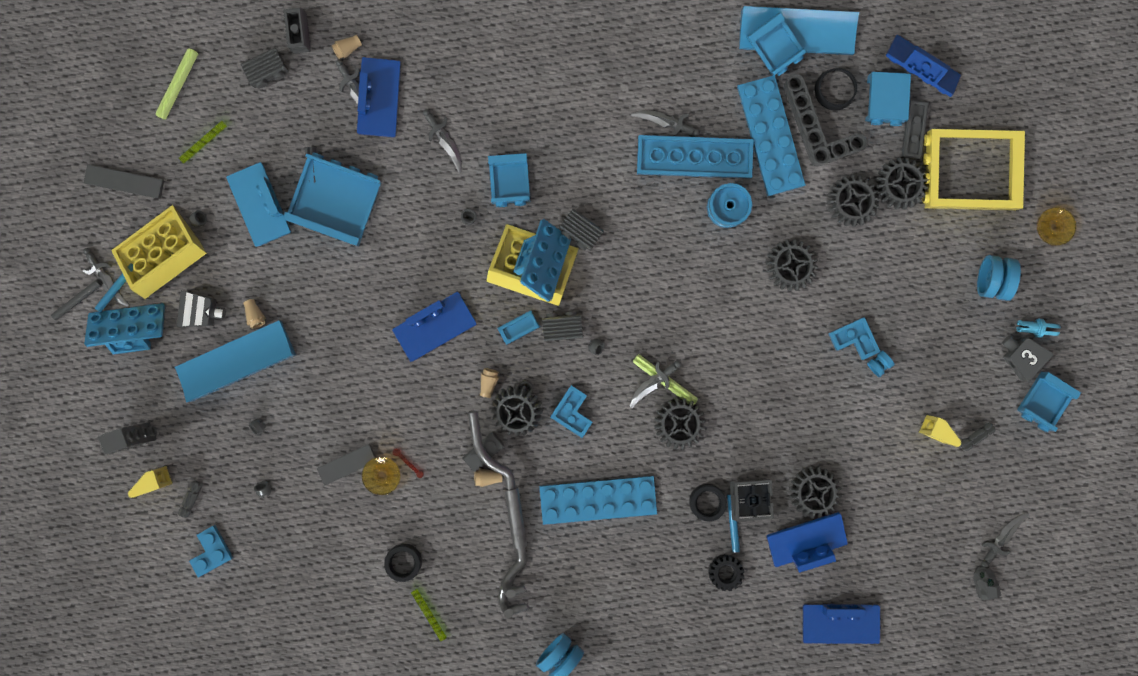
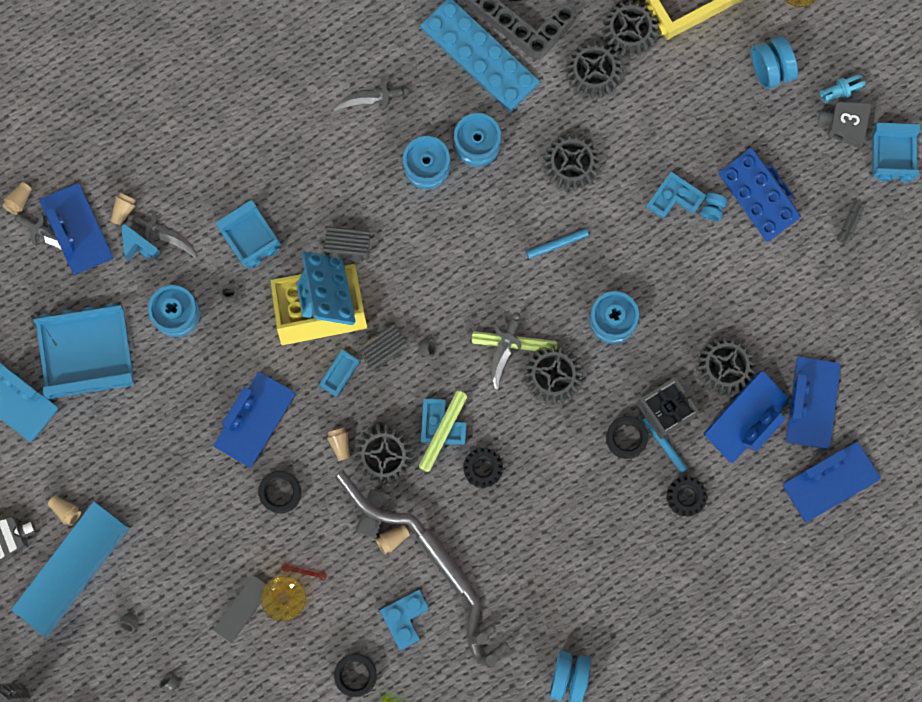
camera: 25 degrees left, 10 degrees down
(408, 202) = (162, 306): none -> dark azure wheel
(408, 393) = (267, 480): none -> black tyre
(417, 133) = (133, 241): none -> dark azure slope
(423, 101) = (122, 208): none -> tan cone
(459, 537) = (399, 615): none -> dark azure plate
(571, 419) = (443, 431): none -> yellowish green axle
(586, 474) = (486, 454): none -> black tyre
(598, 500) = (516, 498): dark azure plate -> none
(675, 212) = (415, 160): none -> dark azure wheel
(695, 156) = (417, 114): dark azure plate -> none
(743, 322) = (557, 243): none -> dark azure bar
(763, 406) = (617, 305): none -> dark azure wheel
(864, 557) = (813, 403): none -> blue bracket
(923, 375) = (761, 194): none -> blue bracket
(939, 430) = (809, 236): light yellow tile -> none

